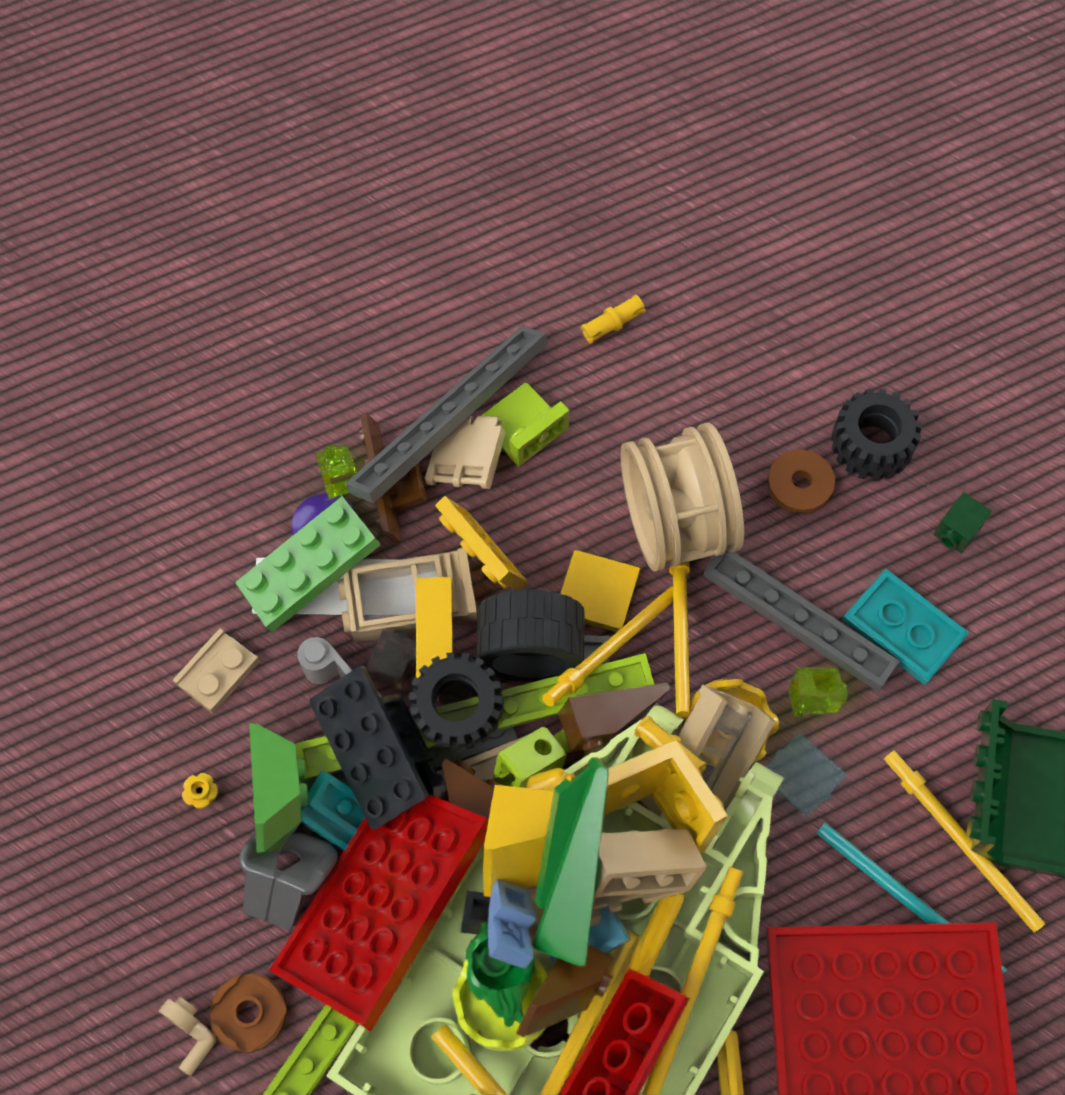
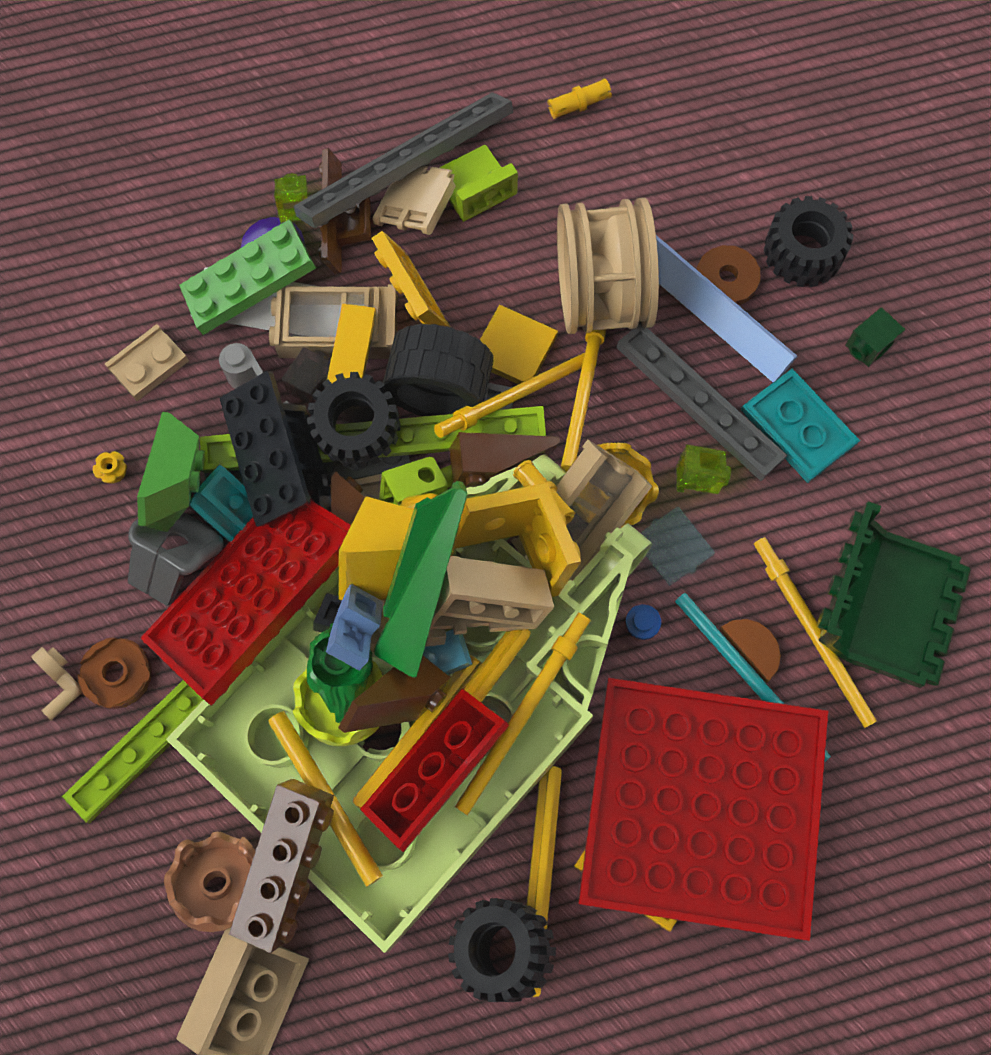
camera: 10 degrees right, 5 degrees up
(788, 861) = (643, 621): none -> blue plate
(808, 526) = (722, 314): none -> light blue tile
(907, 865) = (755, 645): none -> dark orange tile

